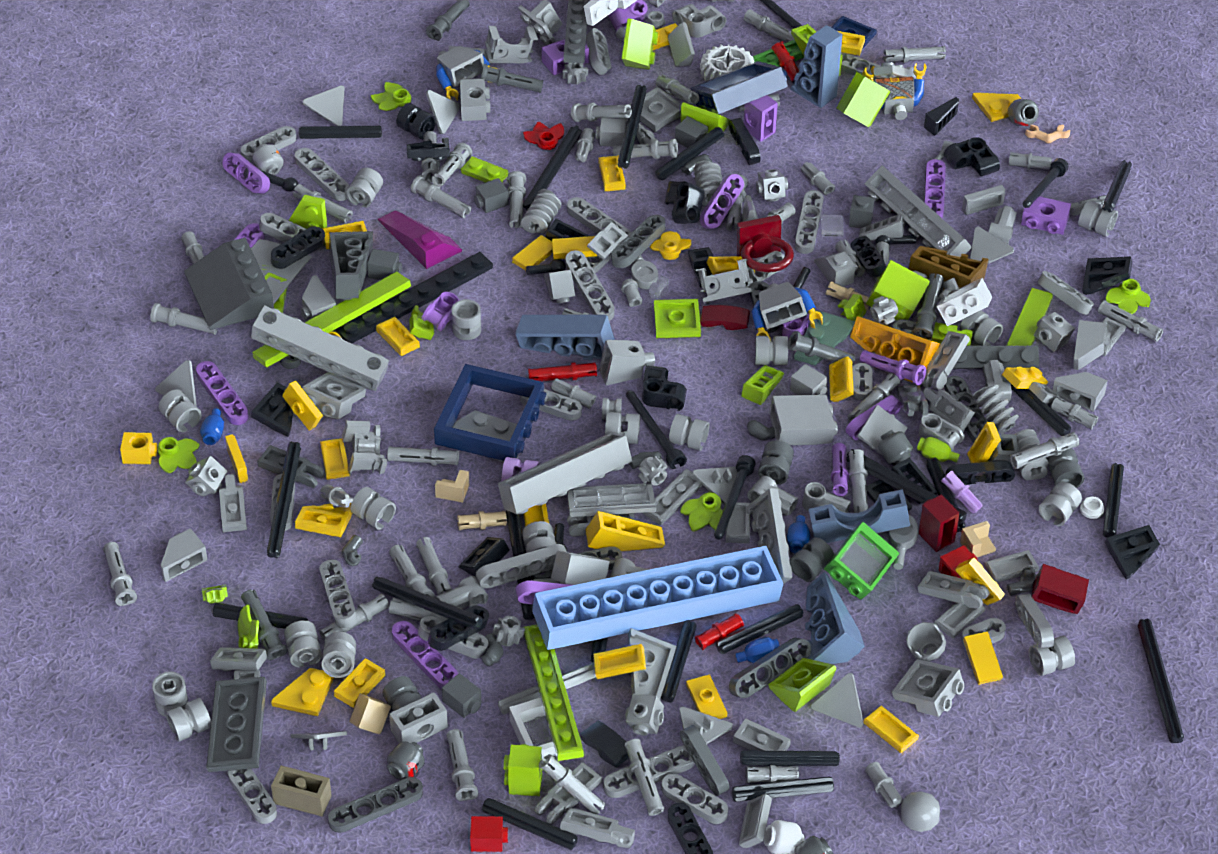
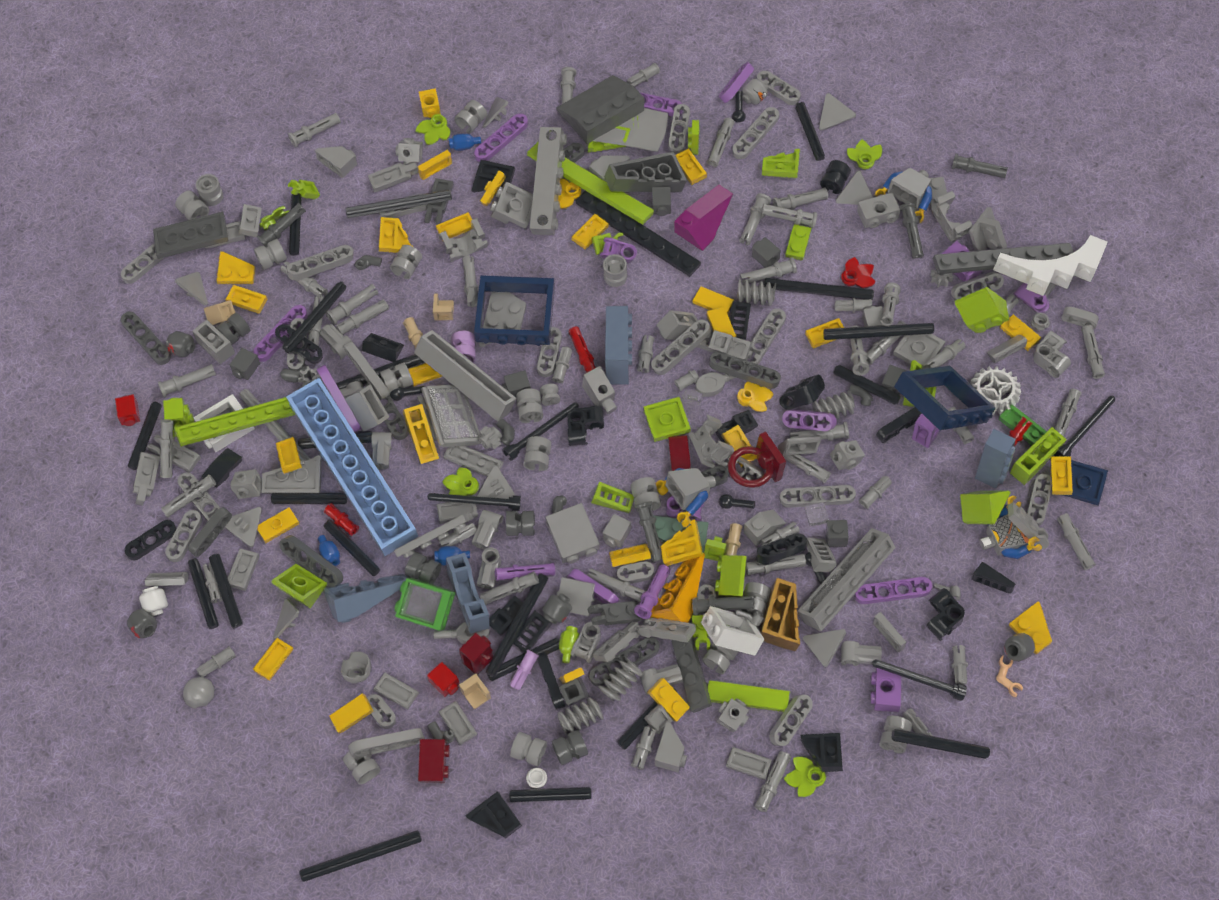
camera: 80 degrees right, 15 degrees up
(295, 255) = (653, 130): black beam -> none
(301, 790) = (141, 288): dark tan brick -> none
(336, 496) = (410, 235): light grey axle -> none
(339, 654) = (268, 277): light grey wheel -> none
(364, 187) = (750, 161): light grey wheel -> none
(379, 158) = (781, 165): none -> lime wing
(427, 149) = (795, 193): black wing -> none
(554, 266) = (696, 310): black bar -> none
(588, 430) = (516, 382): none -> dark grey brick
(844, 329) = (682, 546): none -> yellow wing
(884, 310) = (706, 569): light grey gear -> none
(929, 687) = (313, 678): light grey plate -> none
(953, 589) = (415, 677): light grey hinge -> none
(974, 571) = (420, 702): yellow plate -> none
(1053, 446) = (574, 728): light grey pin -> none
(1090, 342) = (725, 746): light grey slope -> none

